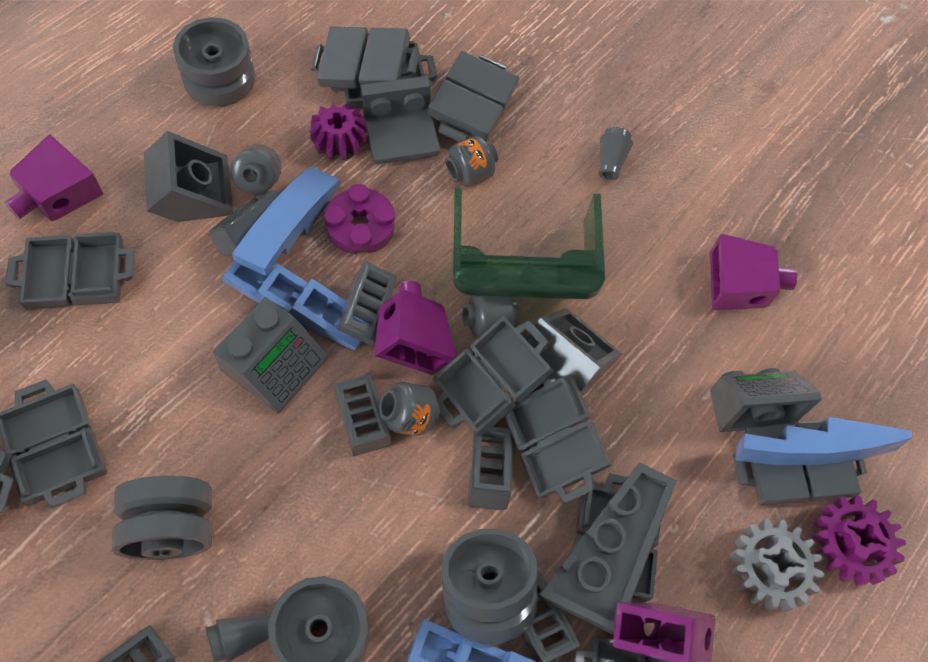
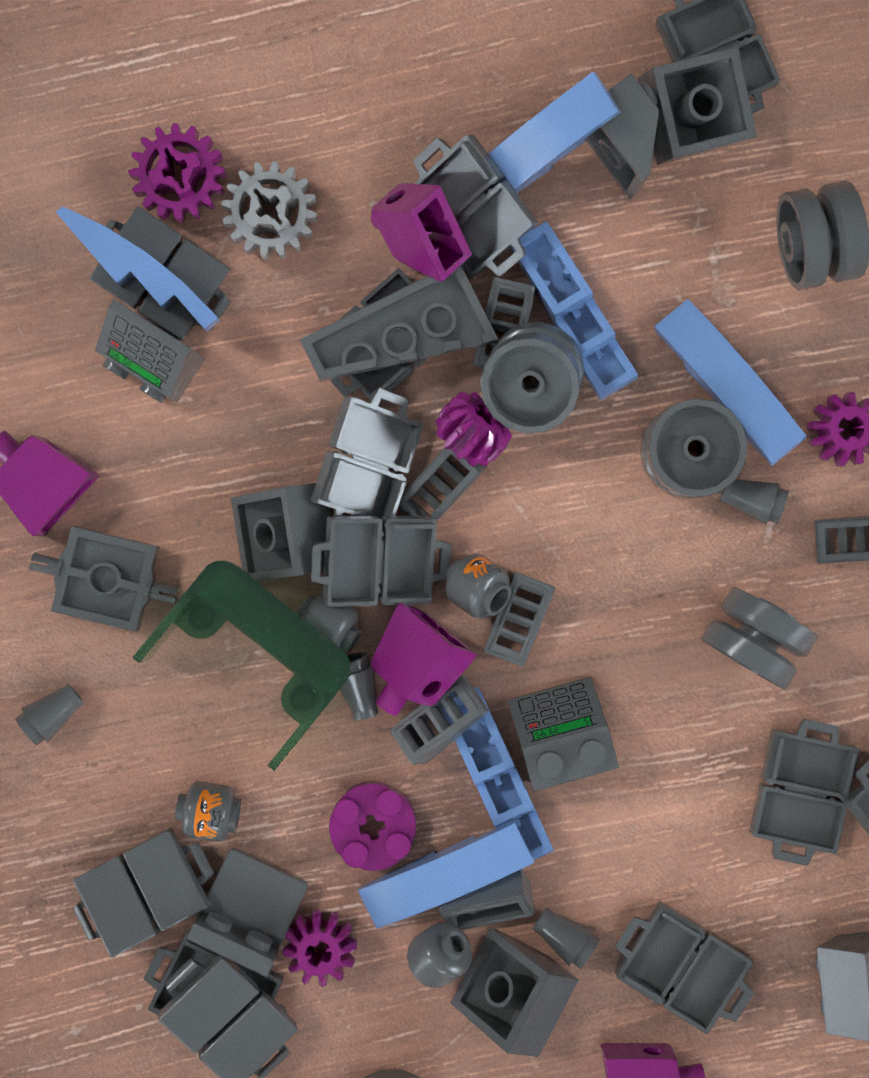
camera: 130 degrees left, 25 degrees up
(173, 234) = (566, 937): none -> dark grey cone
(442, 292) = (360, 687): none -> dark grey cone
(503, 509) = (471, 430): none -> magenta gear
(654, 247) = (104, 578): none -> dark grey plate

